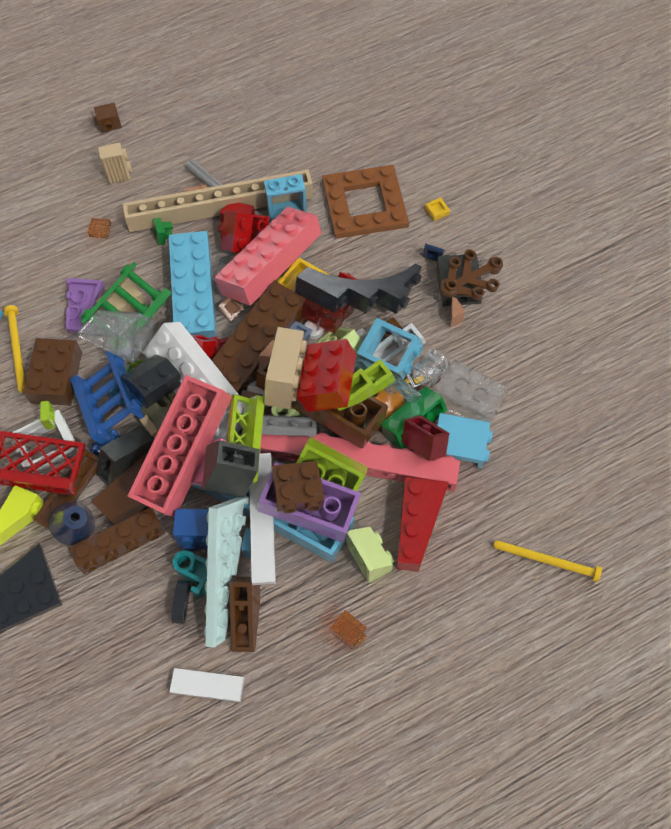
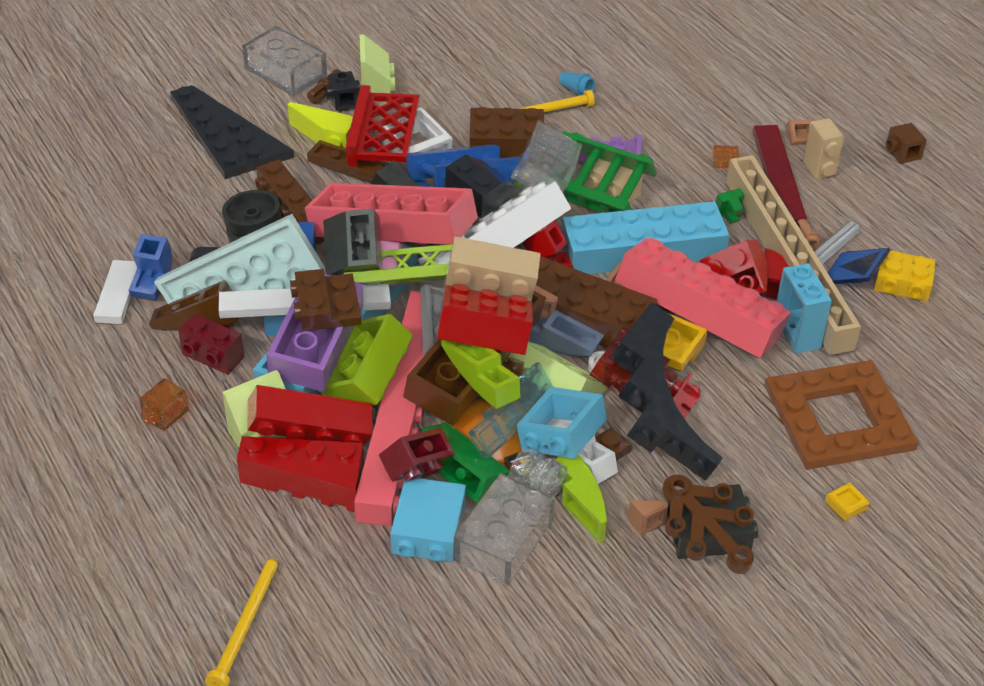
camera: 85 degrees right, 20 degrees down
(47, 415) = (438, 123): lime tile -> none
(69, 531) = (311, 161): dark blue cone -> none
(79, 178) = (798, 131): none -> nougat slope
(113, 197) = (778, 169): none -> dark red tile
(137, 557) = (250, 212): none -> pearl dark grey wheel
(192, 653) = (152, 260): none -> blue brick
(235, 165) = (857, 265): none -> piece
(241, 144) = (906, 276): none -> yellow plate
(285, 597) = (211, 343): none -> dark red brick
(382, 514) = (308, 416): none -> red brick
(432, 252) = (761, 493): dark blue slope -> none
(445, 343) = (583, 497): none -> lime slope

